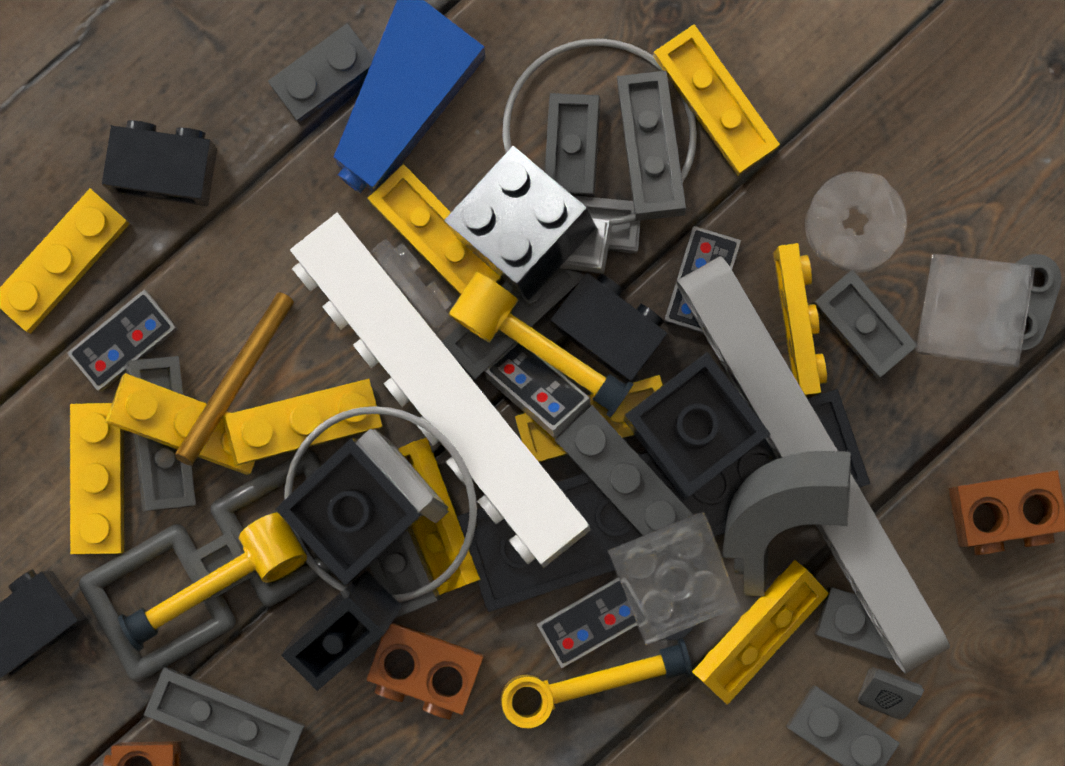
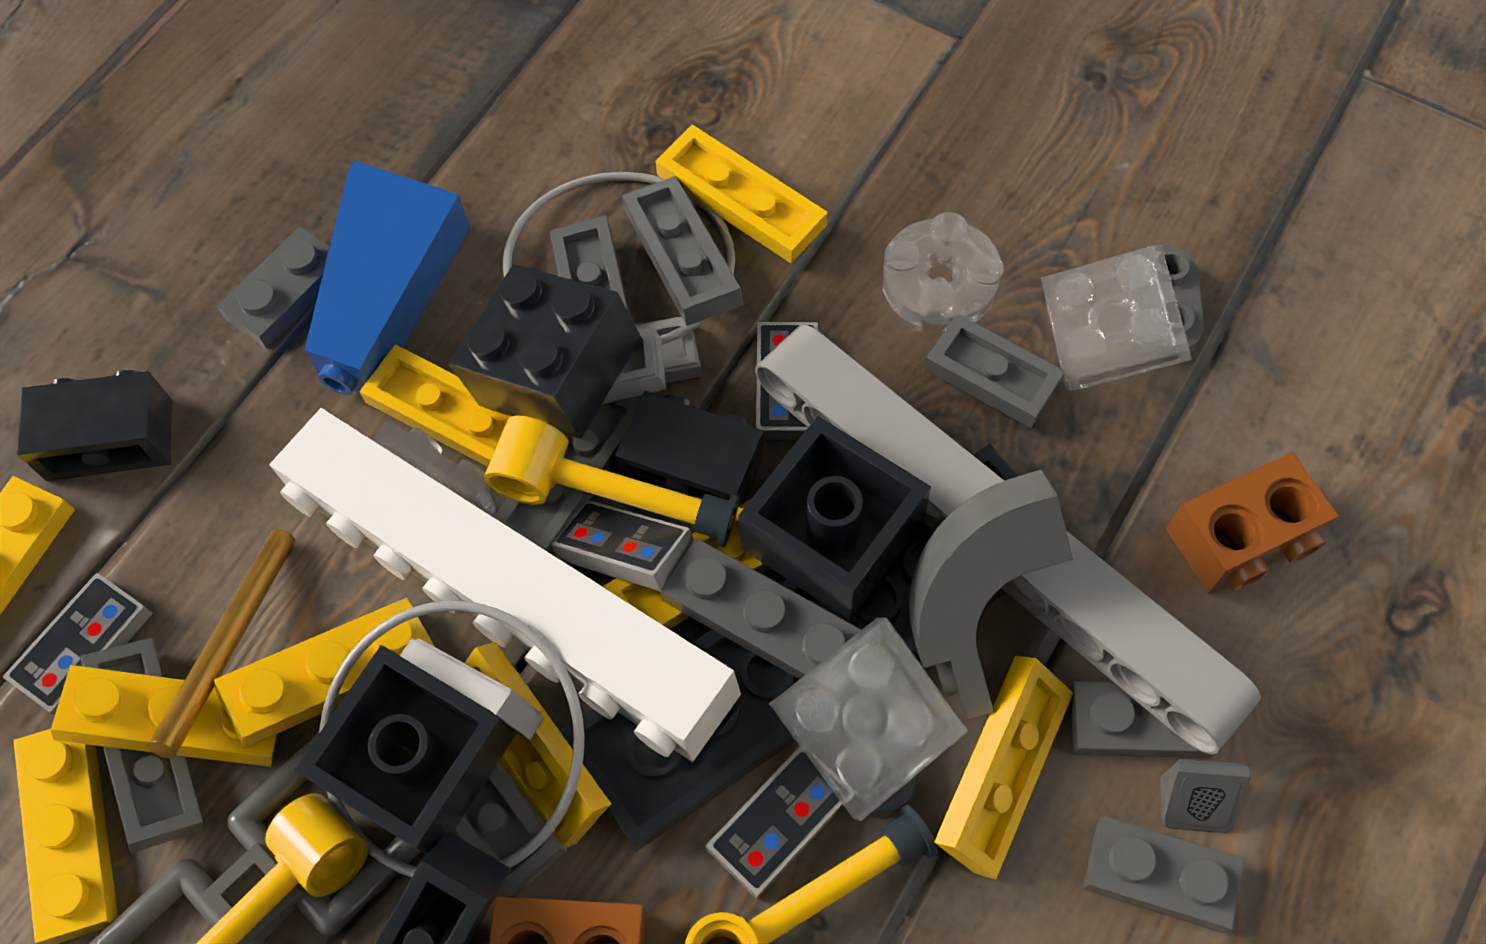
camera: 15 degrees left, 20 degrees down
(799, 318) = (917, 382): yellow plate -> none

